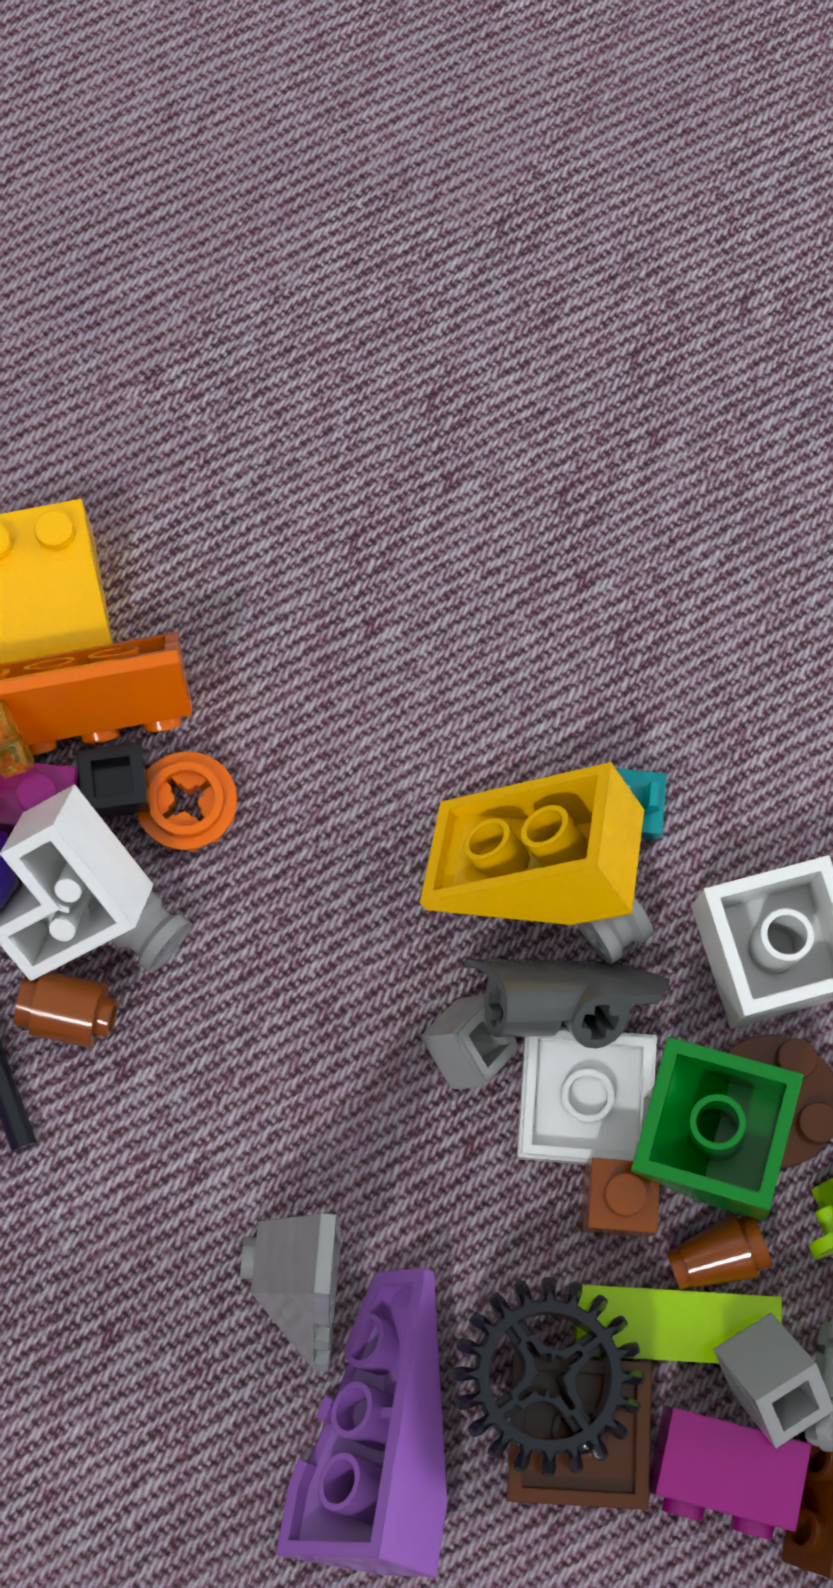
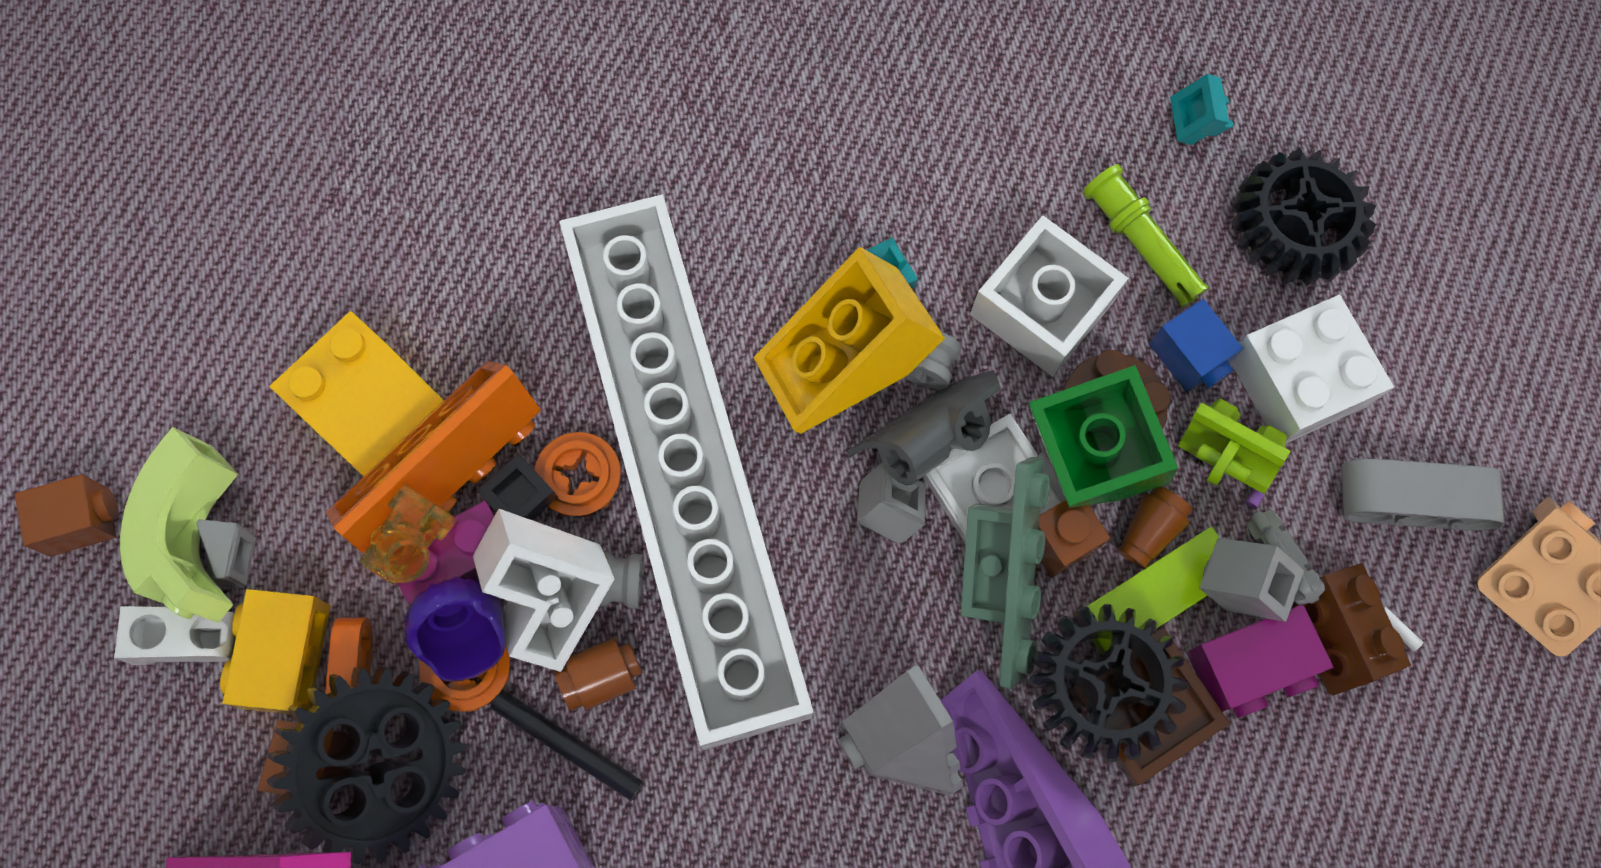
camera: 35 degrees left, 0 degrees up
(283, 872) = (685, 475): none -> white brick
(527, 1184) = (1001, 567): none -> sand green bracket

